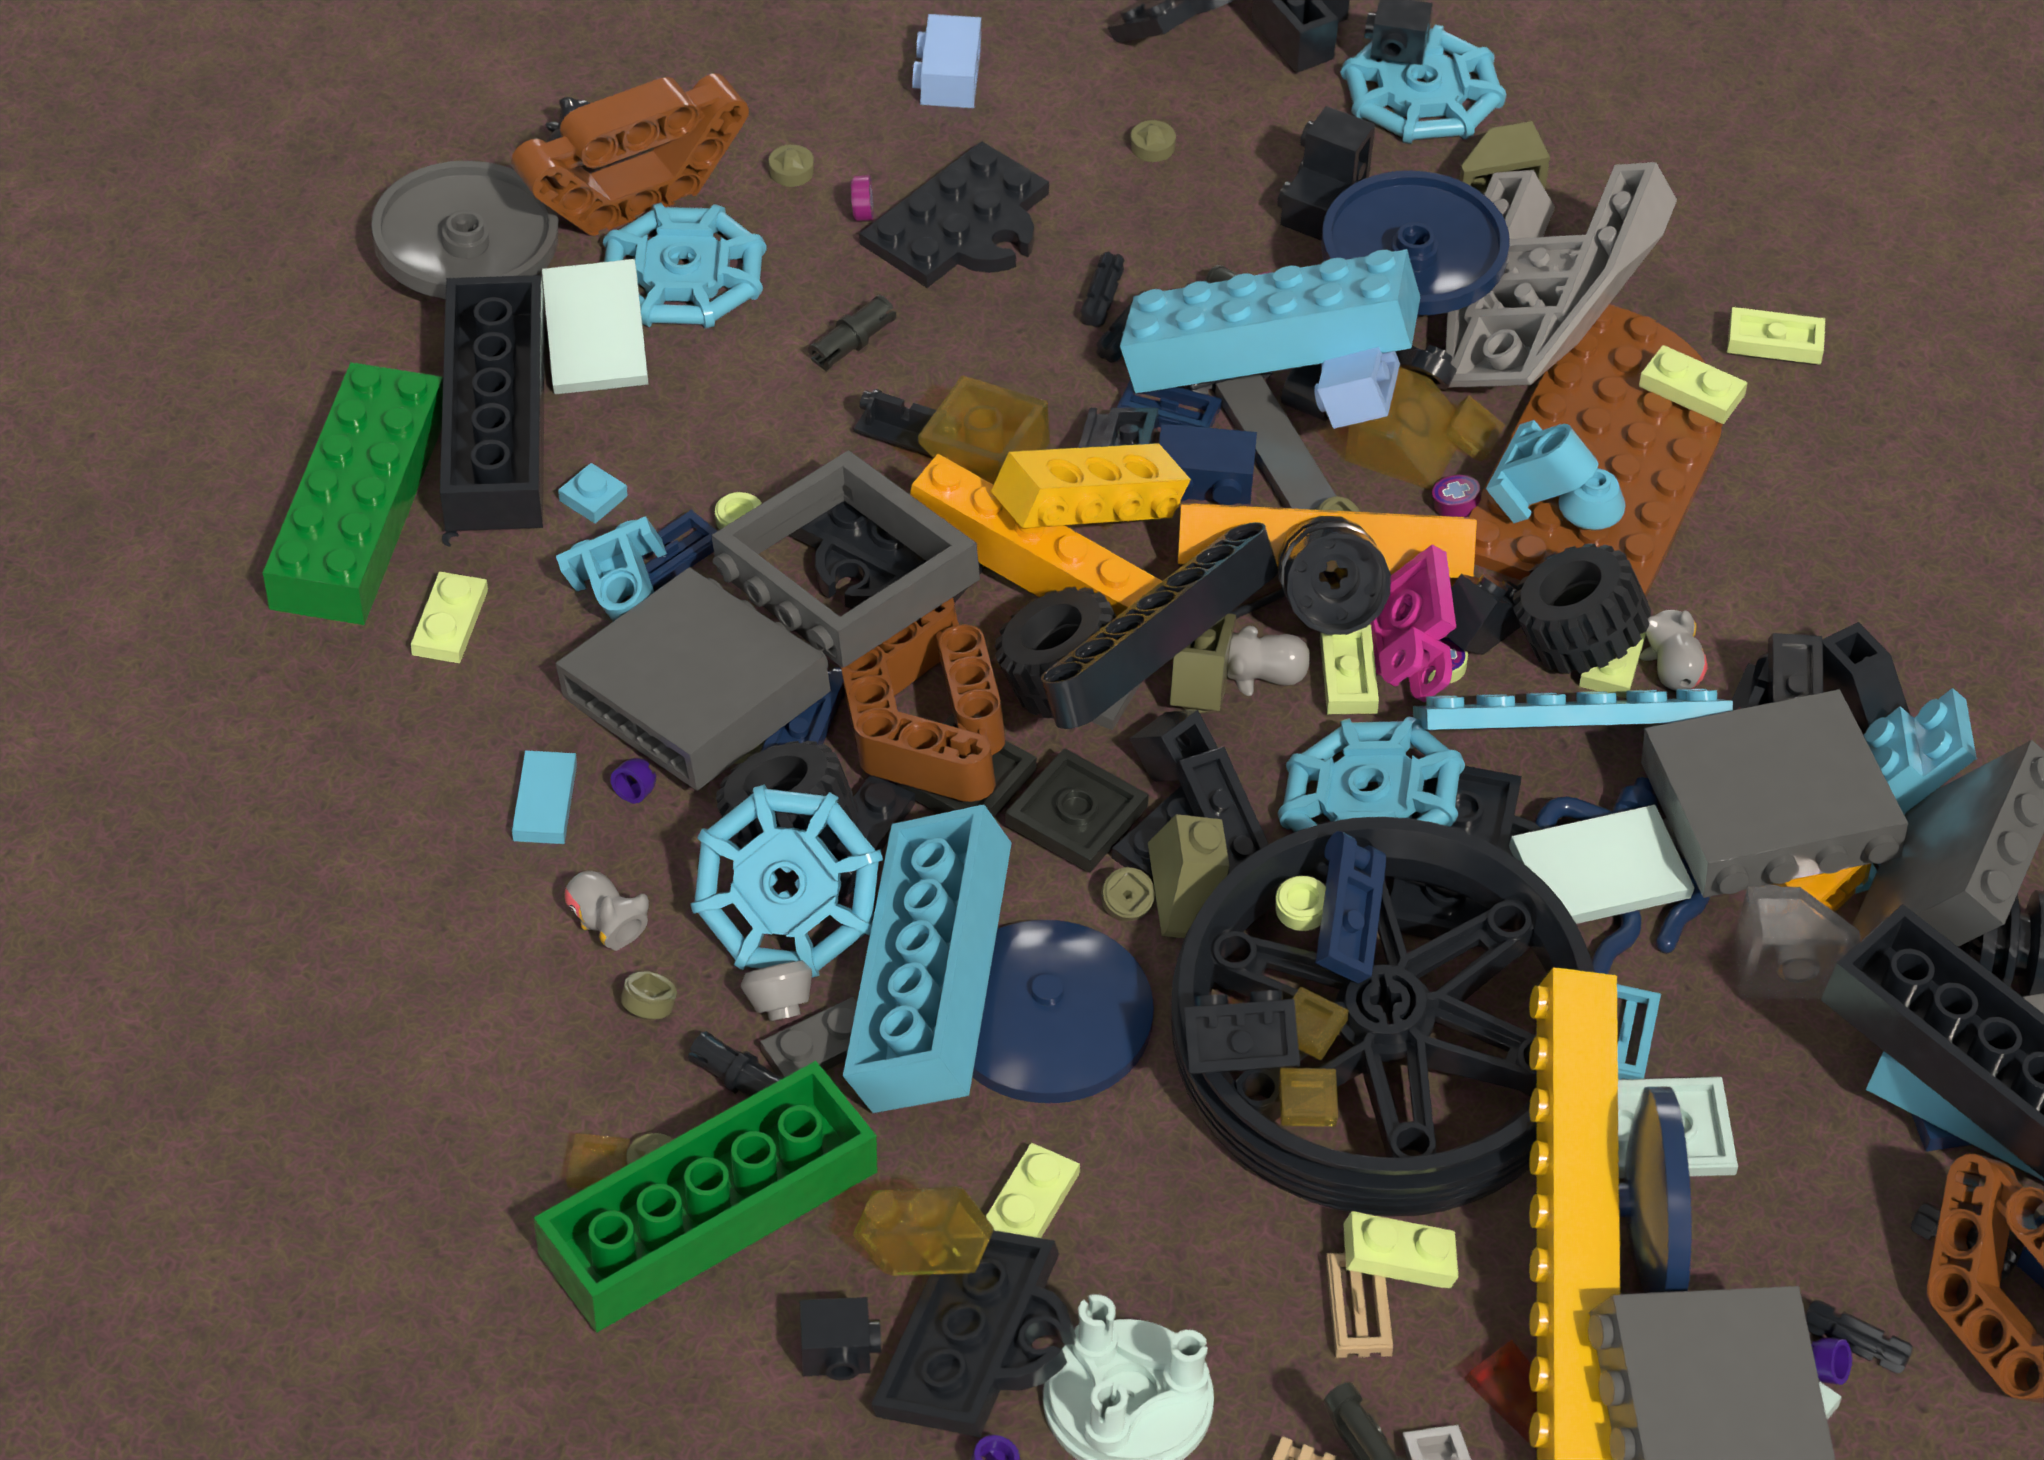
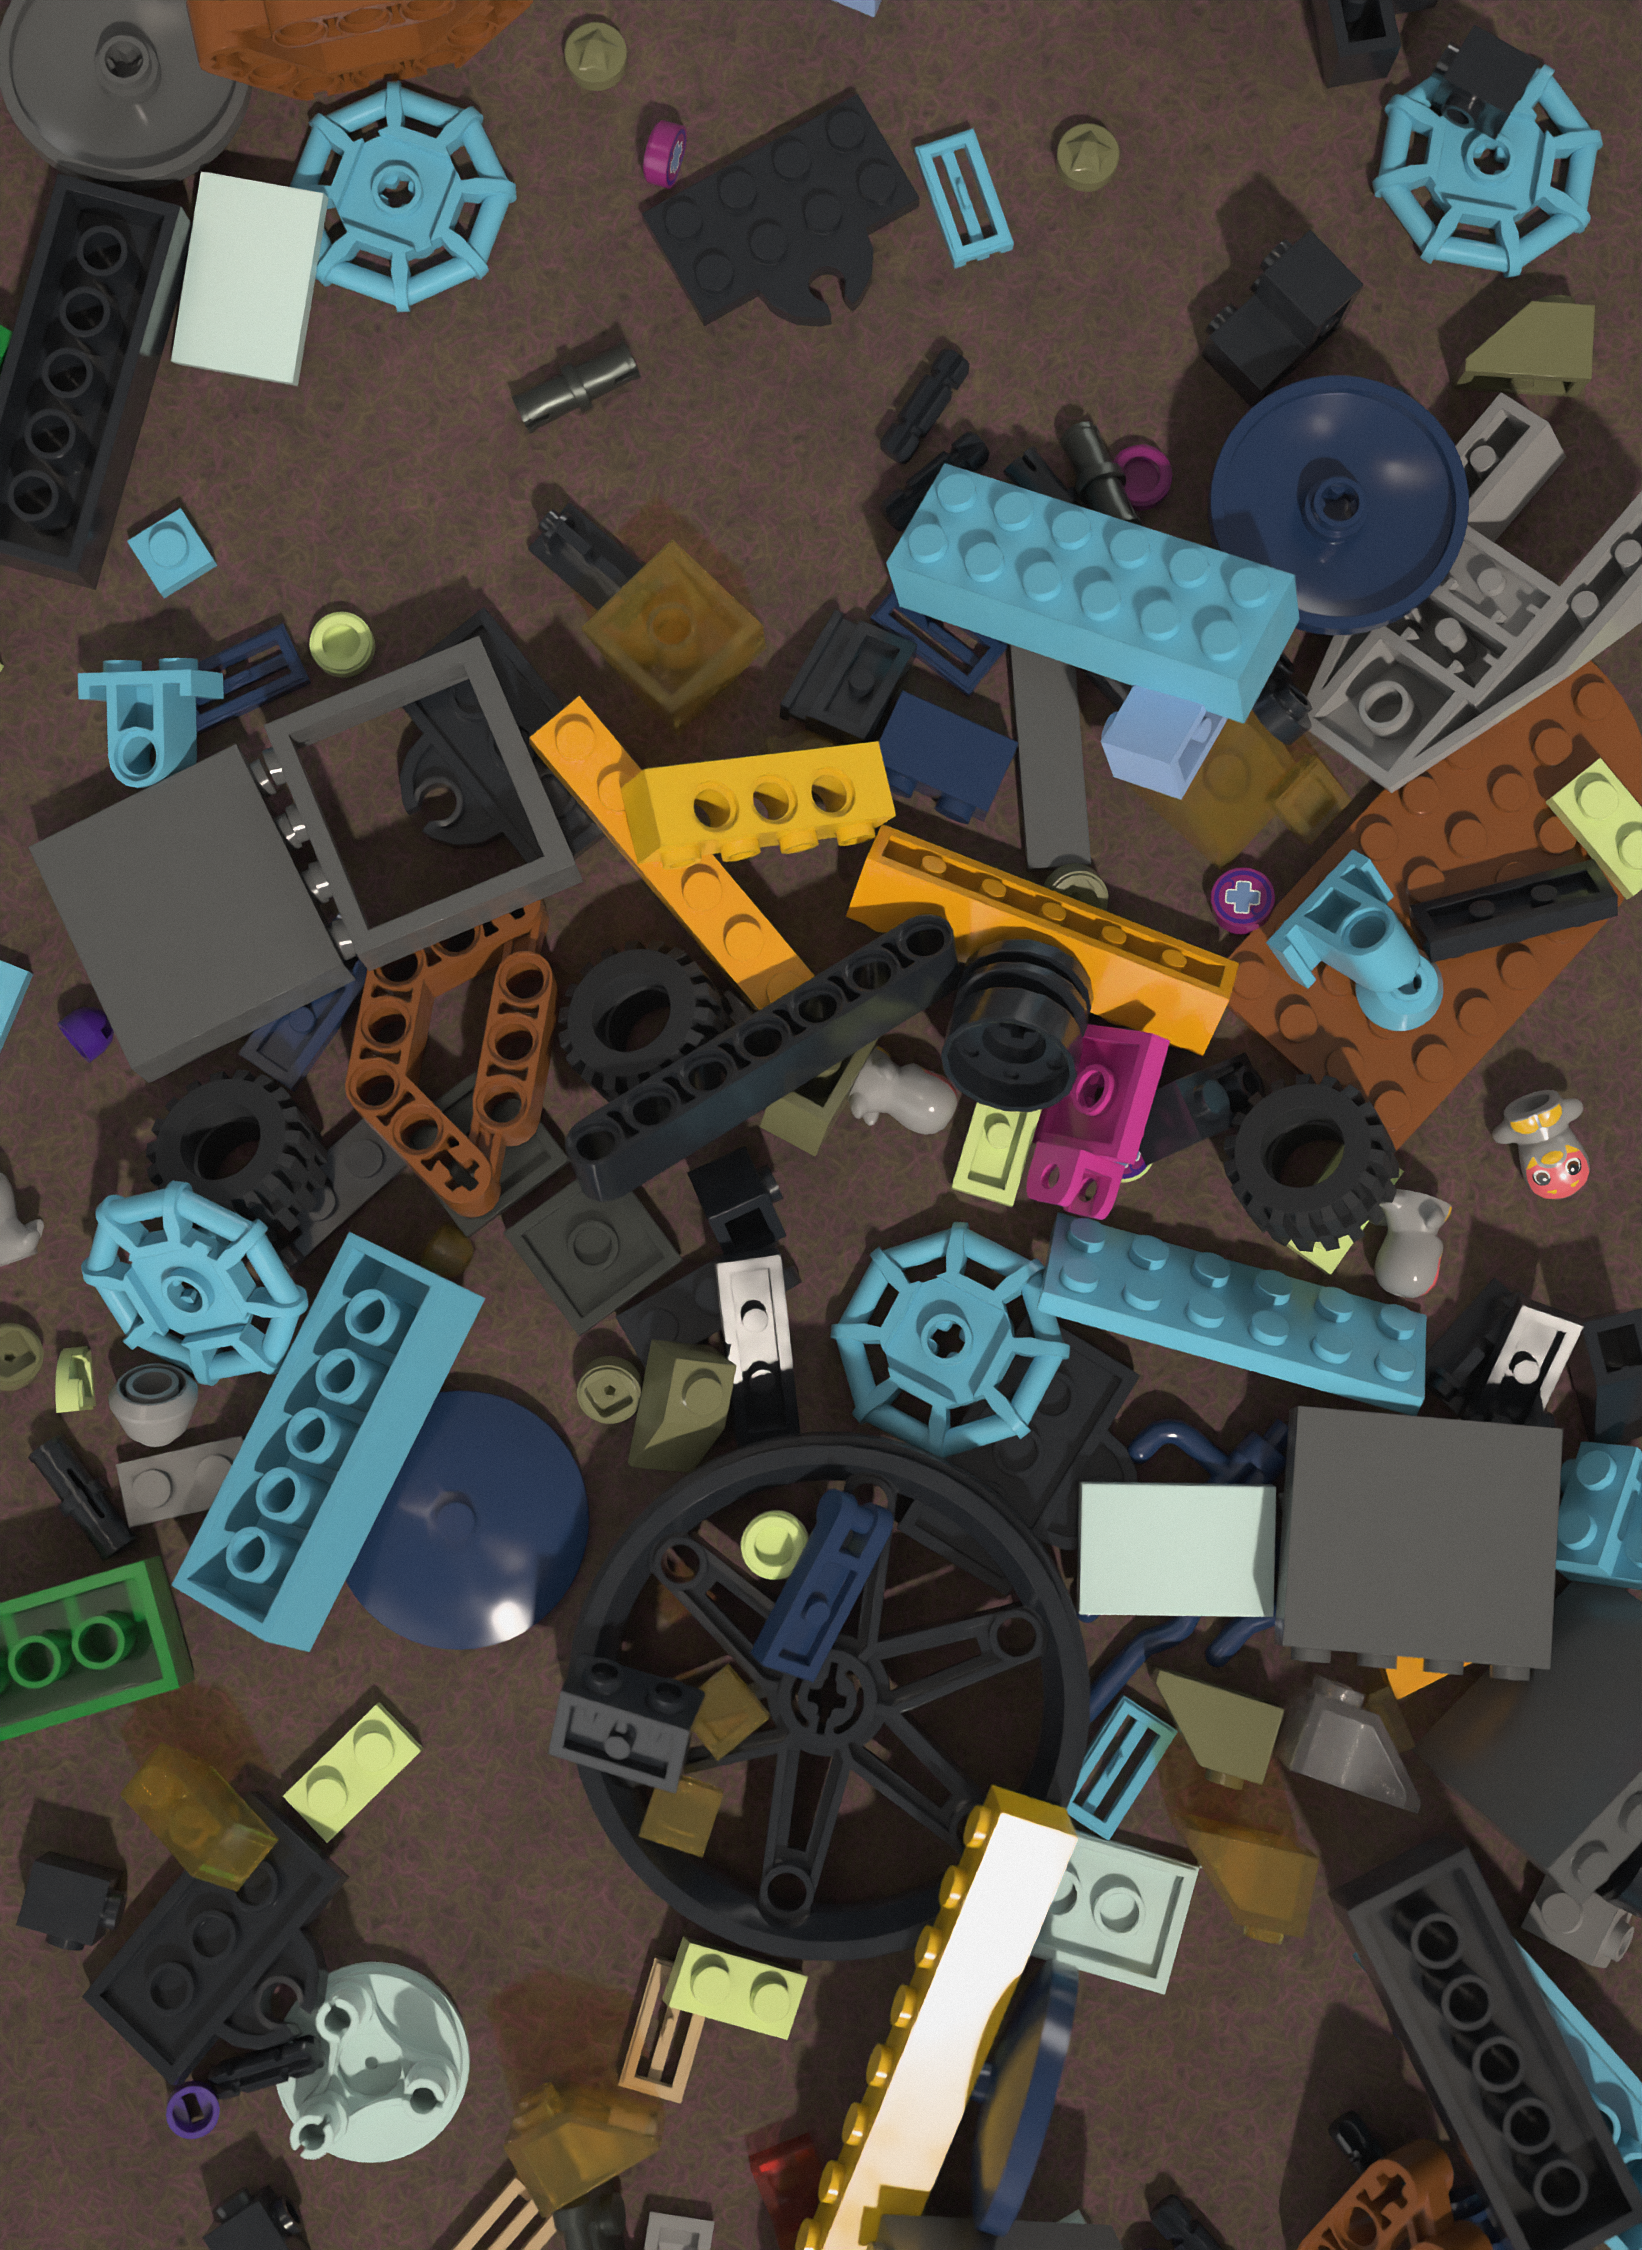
camera: 15 degrees right, 35 degrees up
(709, 999) = (80, 1391): none -> yellowish green tile
(1047, 1405) = (266, 2067): none -> black axle
(1072, 183) = (979, 247): none -> medium azure tile
(1317, 1356) = (578, 2139): none -> clear yellow slope
(1651, 436) = (1513, 910): none -> black plate
(1690, 973) = (1220, 1726): none -> olive slope
(1746, 573) = (1549, 1151): none -> animal
(1755, 1042) = (1255, 1874): none -> clear yellow slope

